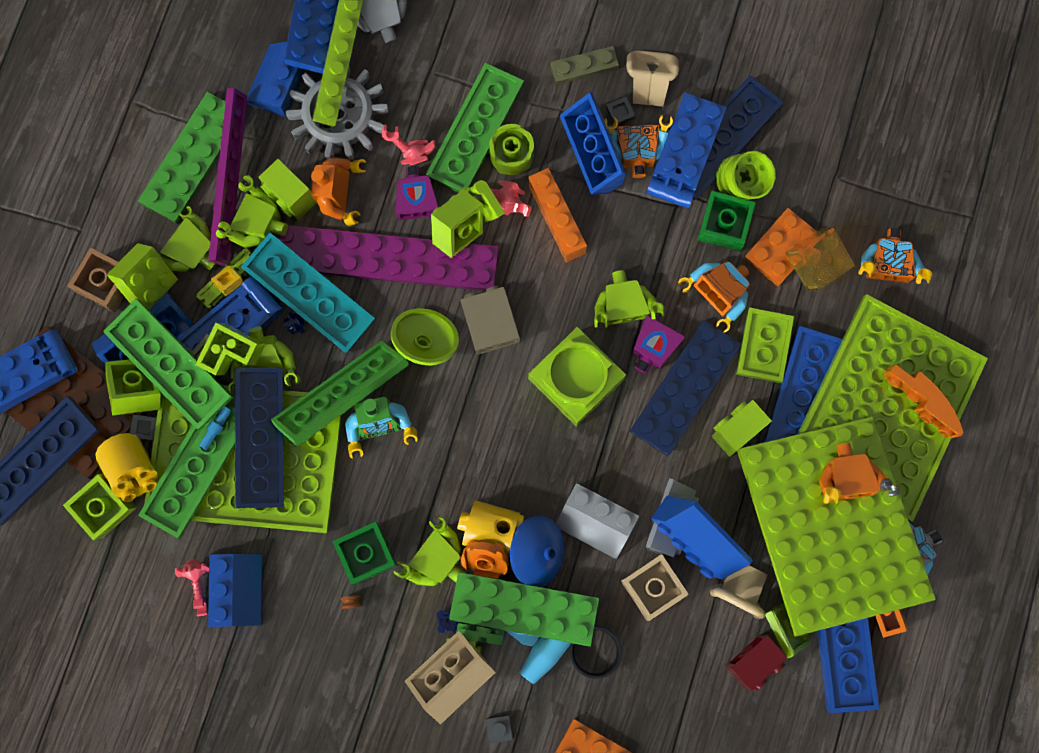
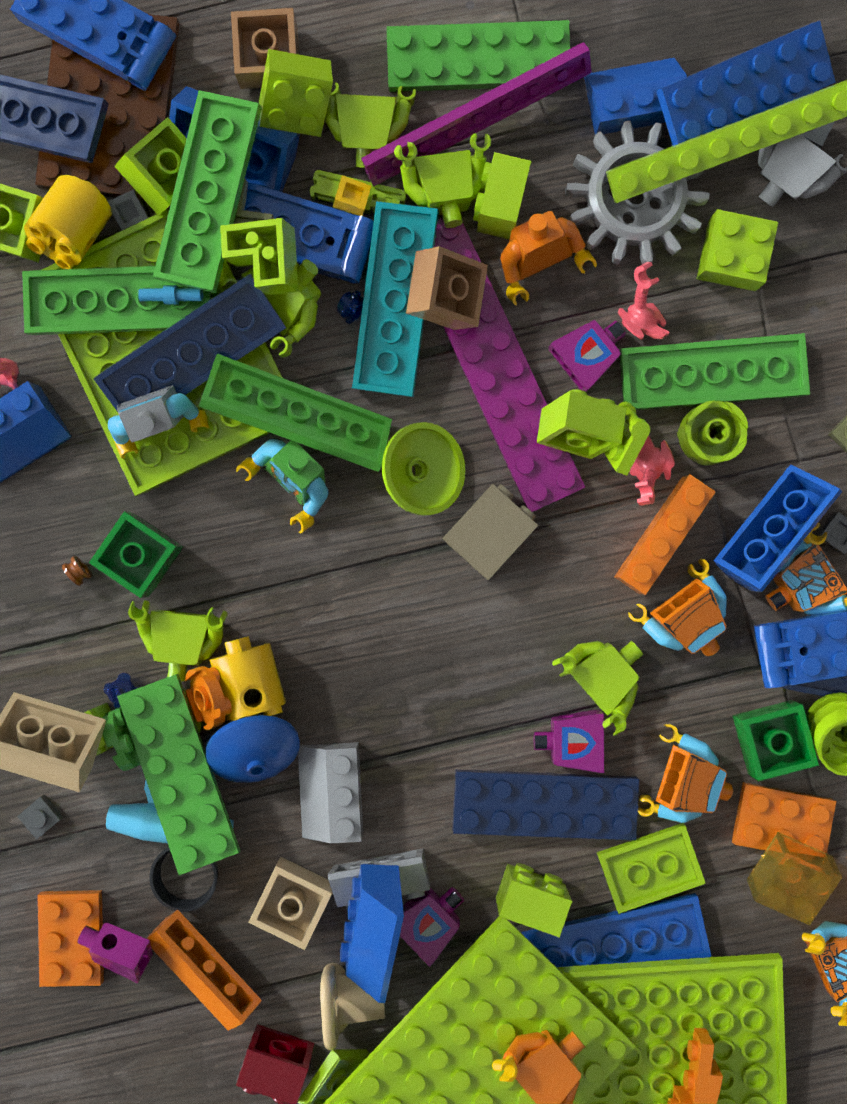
camera: 55 degrees right, 10 degrees up
(283, 485) = (152, 415): none -> torso
(322, 254) = (446, 288): none -> medium nougat brick
(409, 73) = (737, 250): none -> lime brick
(576, 376) = (483, 673): lime container -> none
(617, 227) = (690, 616): none -> torso
(618, 724) = (128, 956): none -> magenta torso
(665, 675) = (203, 970): none -> orange brick
(722, 503) = (431, 923): none -> magenta torso

